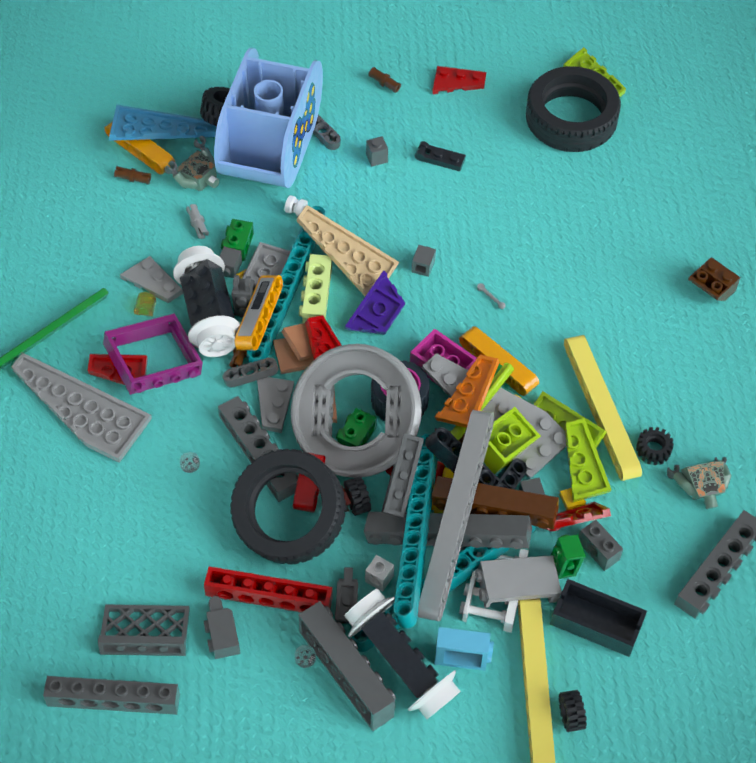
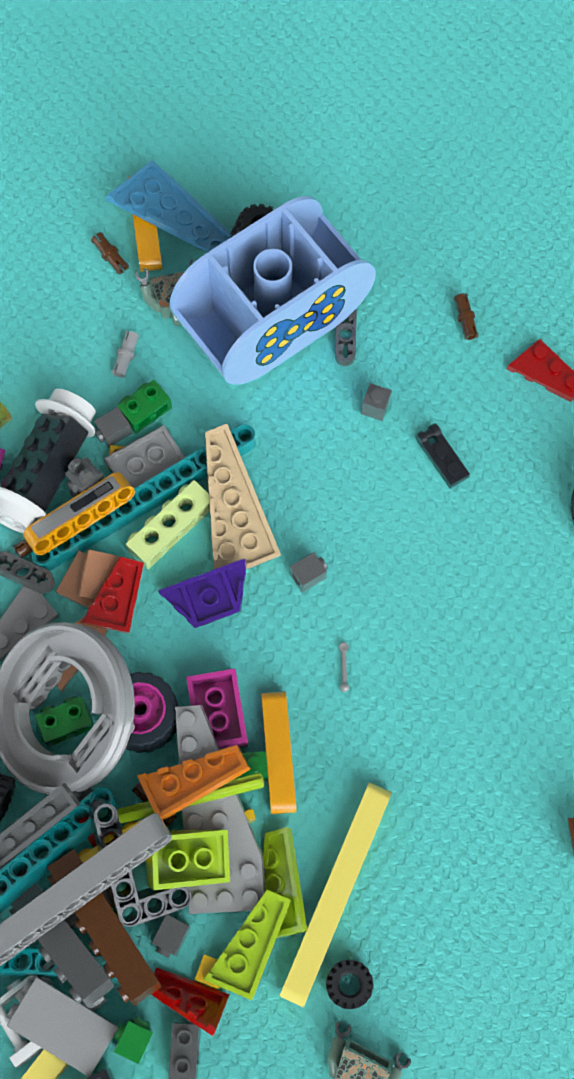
camera: 40 degrees right, 15 degrees up
(153, 279) = (27, 385): light grey wing -> none
(294, 205) = (236, 409): white wheel -> none

